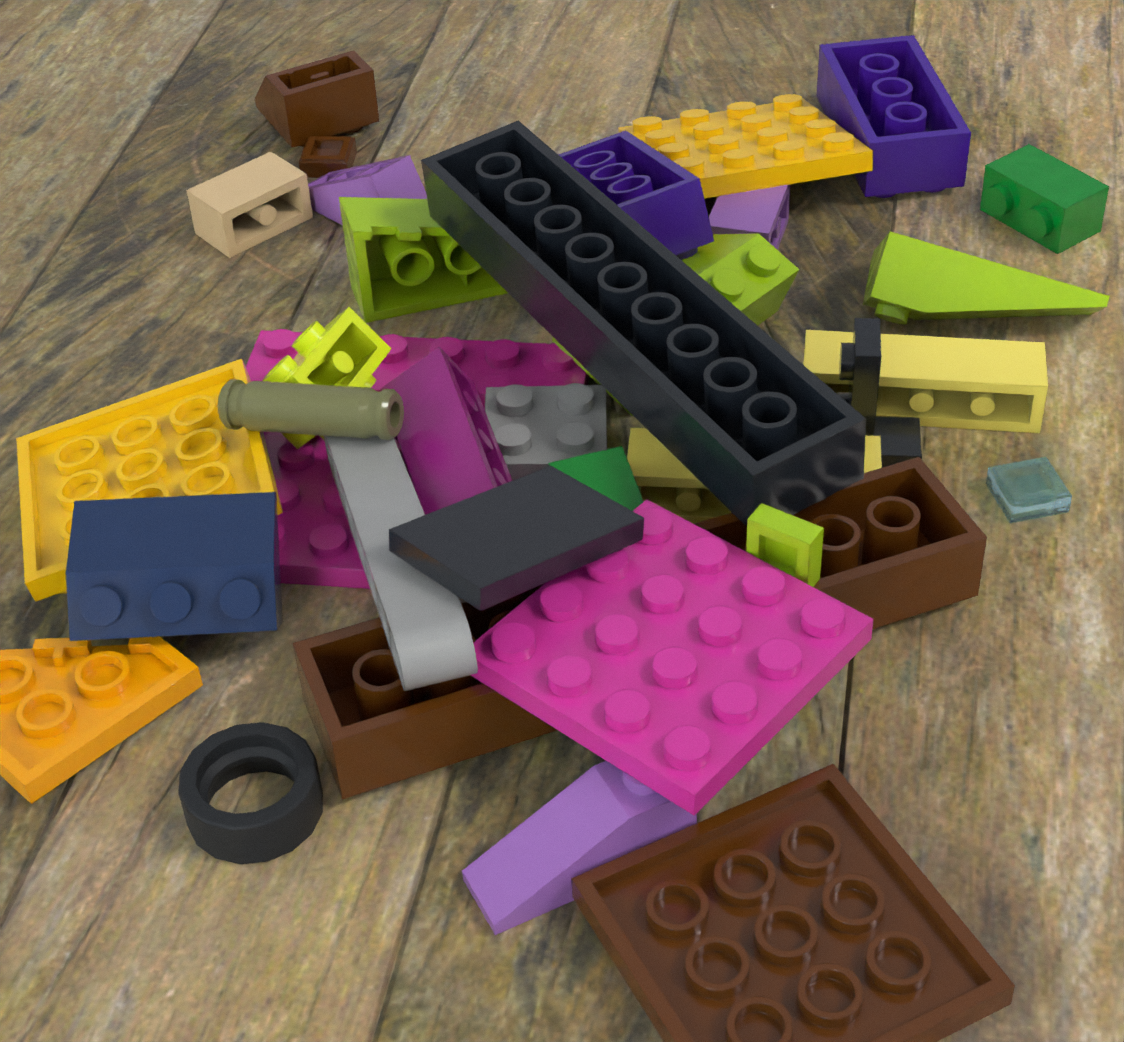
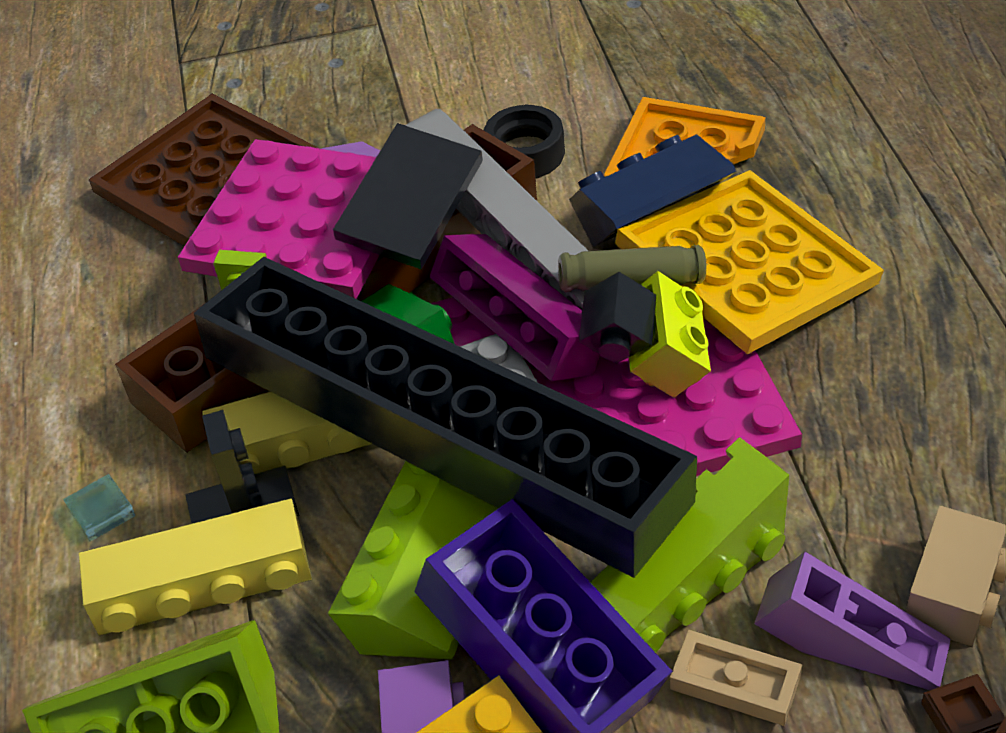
camera: 160 degrees right, 5 degrees up
(373, 351) = (617, 318): none -> black brick

